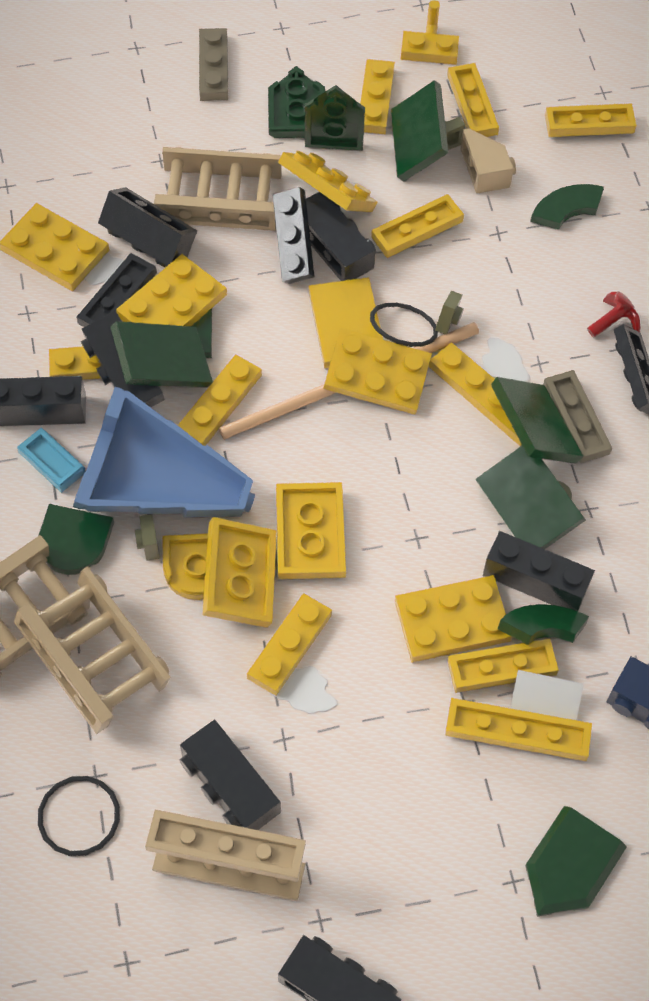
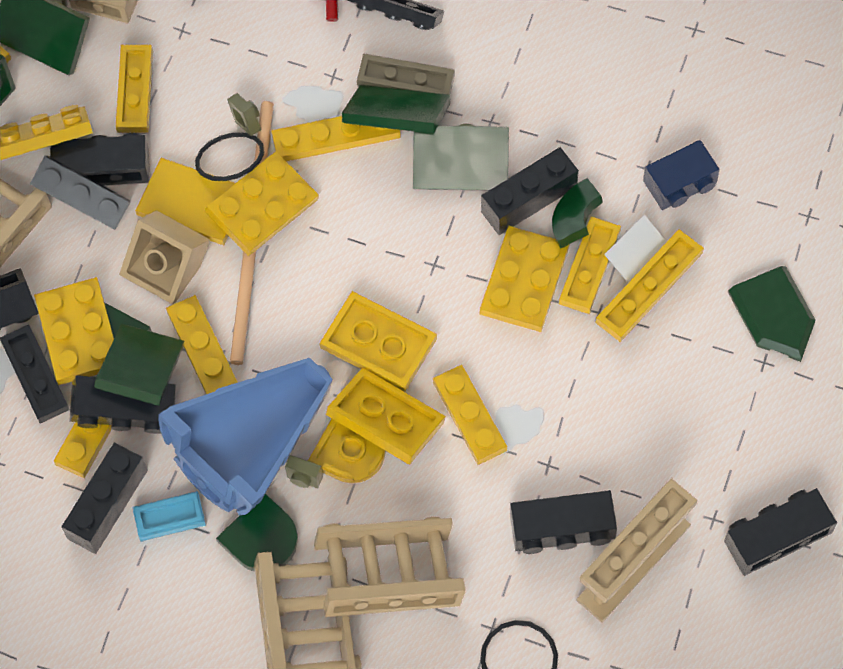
camera: 55 degrees left, 5 degrees up
(281, 326) = (163, 256): none -> tan slope

